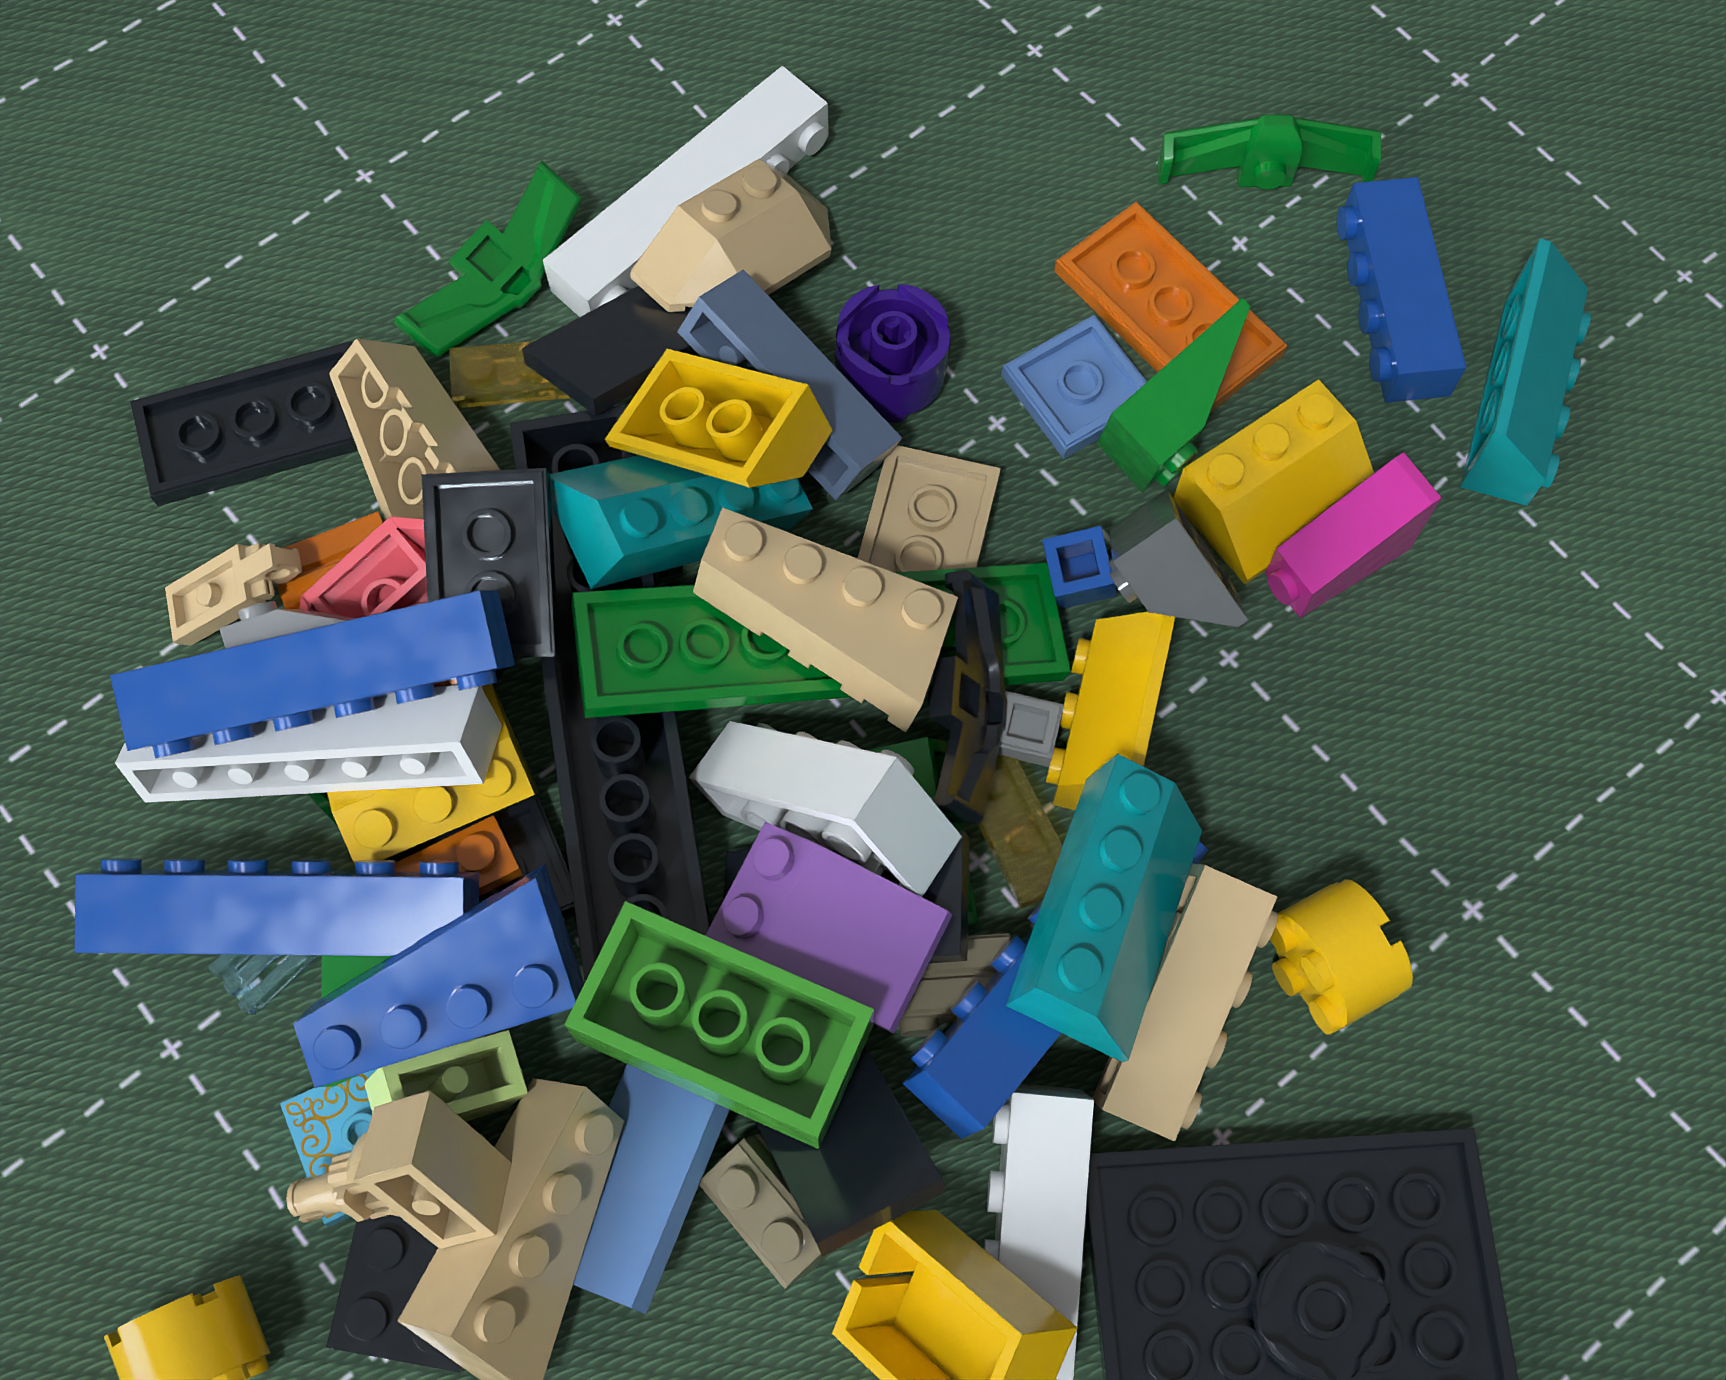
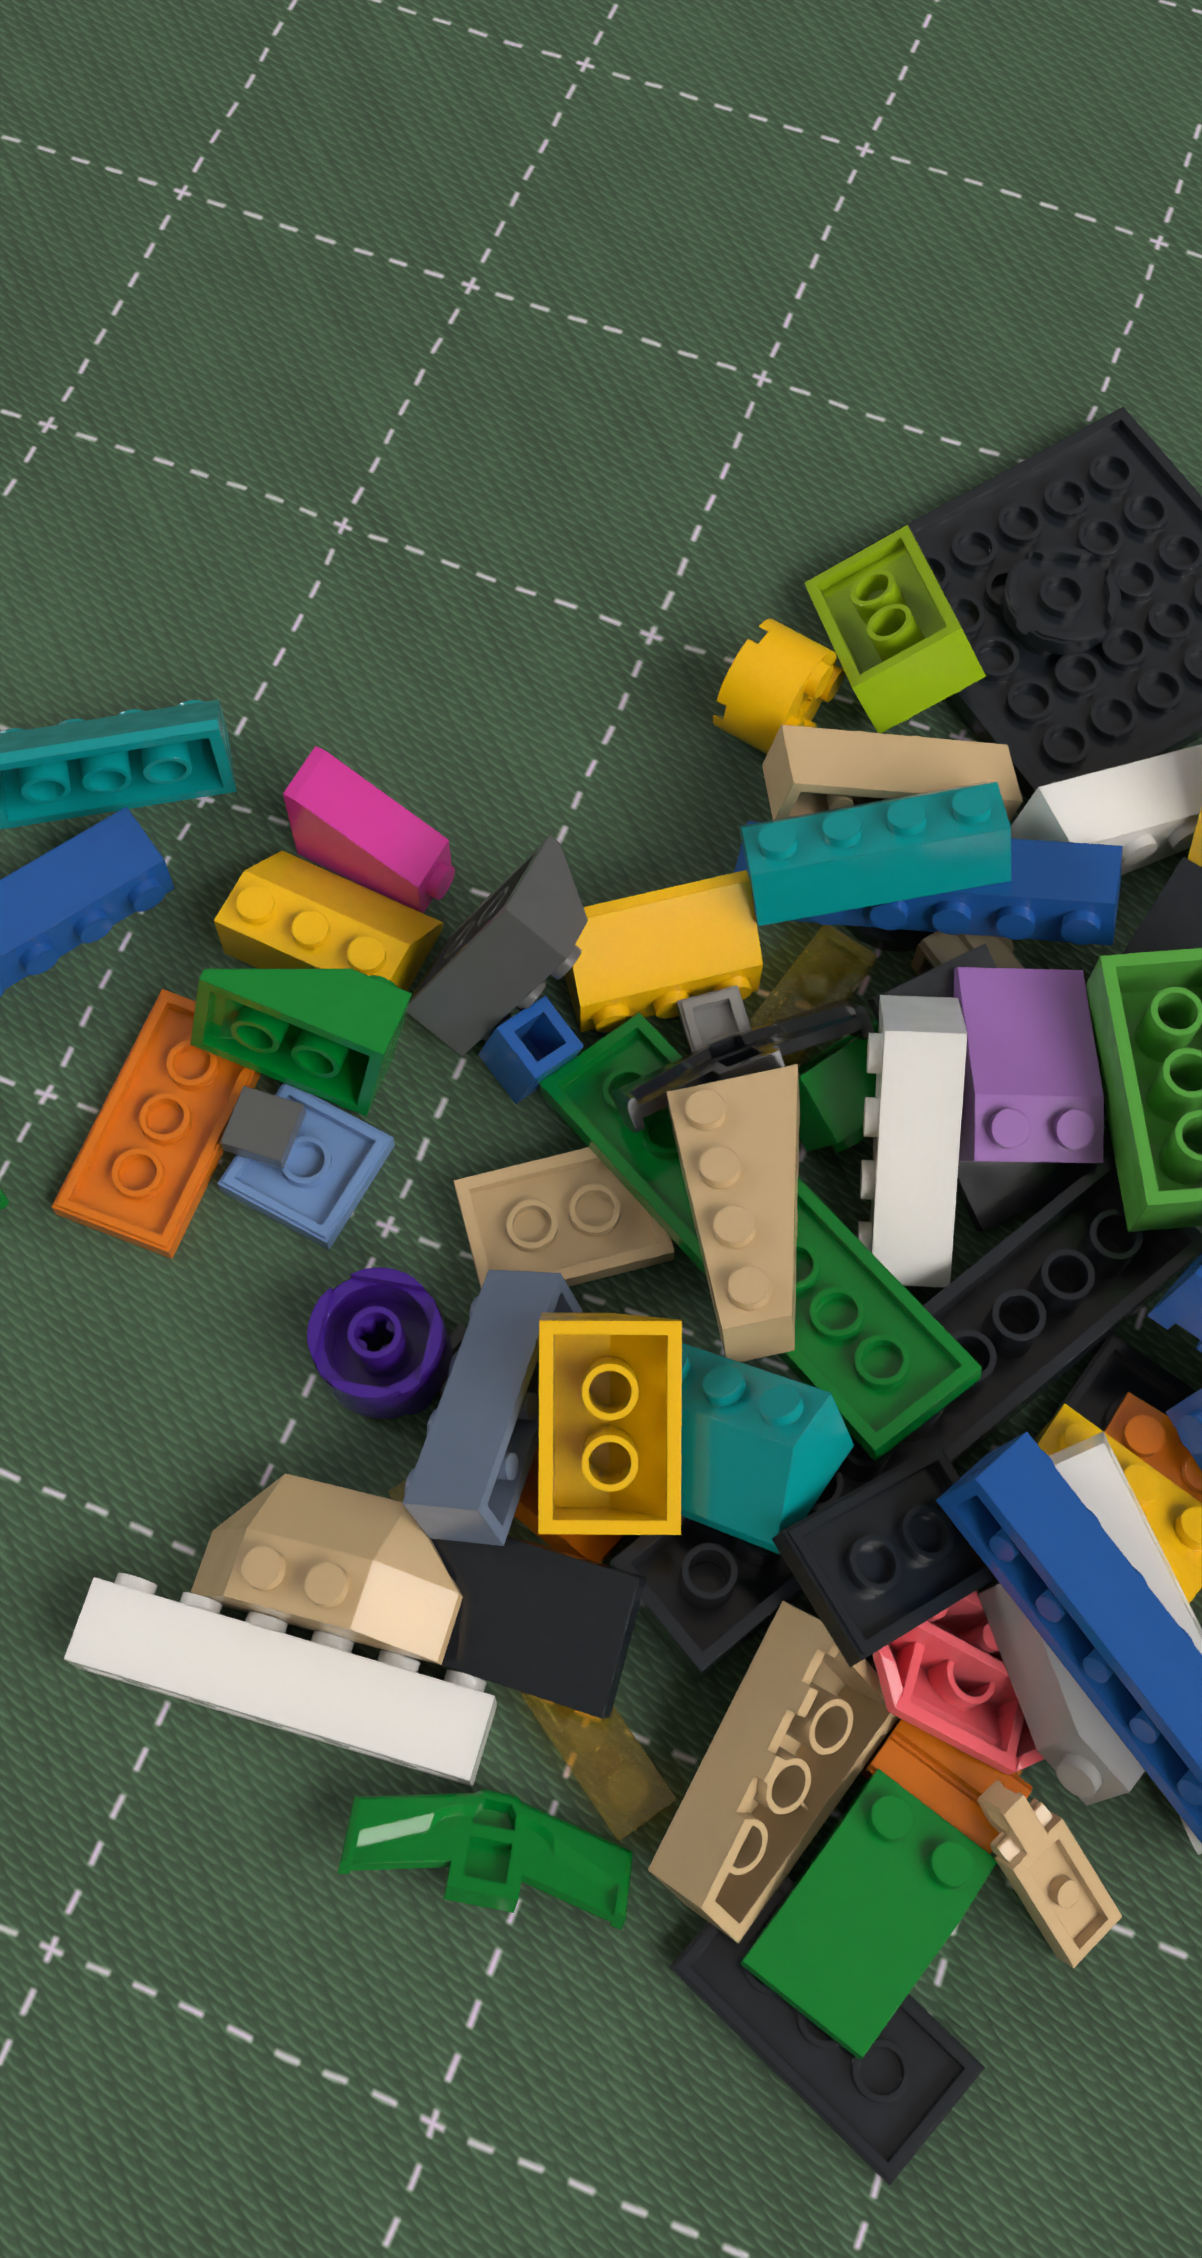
camera: 120 degrees left, 0 degrees up
(289, 462) = (868, 1913): none -> green slope
(1120, 355) = (263, 1127): none -> dark grey tile
(1358, 1106) = (893, 630): none -> lime slope

